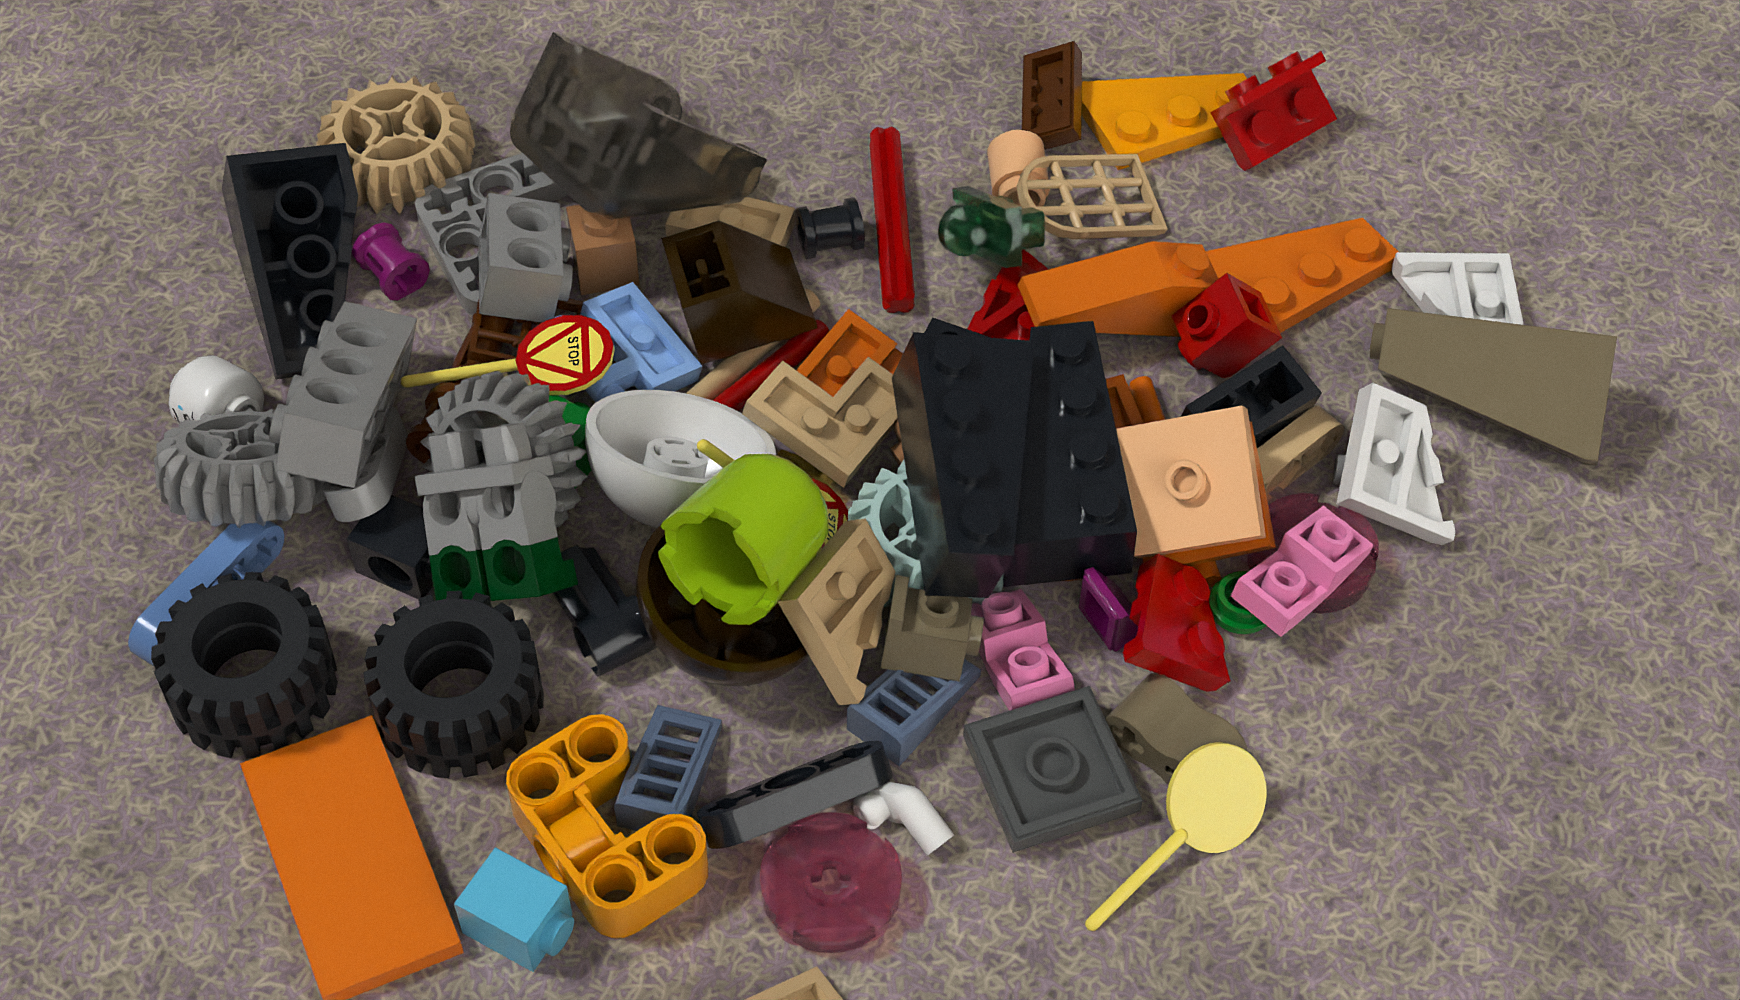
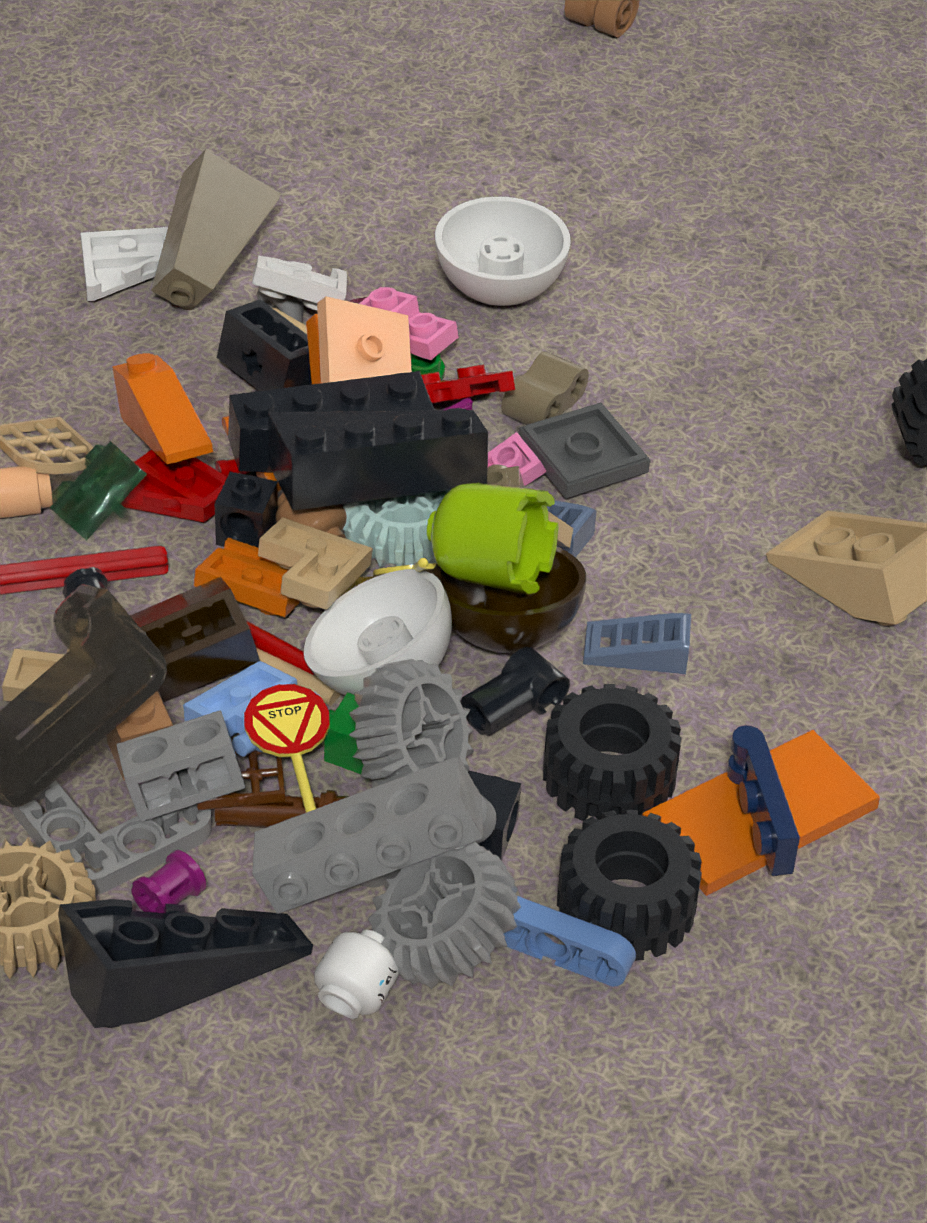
camera: 100 degrees left, 10 degrees down
(319, 828) = (764, 798): none -> dark blue plate
(492, 520) = (481, 718): light grey hips -> none
(515, 910) = (782, 698): medium azure brick -> none
(579, 844) = (733, 658): light orange beam -> none
(794, 794) = (625, 565): black beam -> none
(839, 920) = (691, 568): clear pink plate -> none
(905, 806) = (635, 513): white arm -> none
(1211, 806) = (627, 391): light yellow piece -> none
(1225, 327) = (192, 353): red brick -> none
(1307, 267) = (94, 343): orange wing -> none
(1464, 699) = (502, 249): none -> white piece

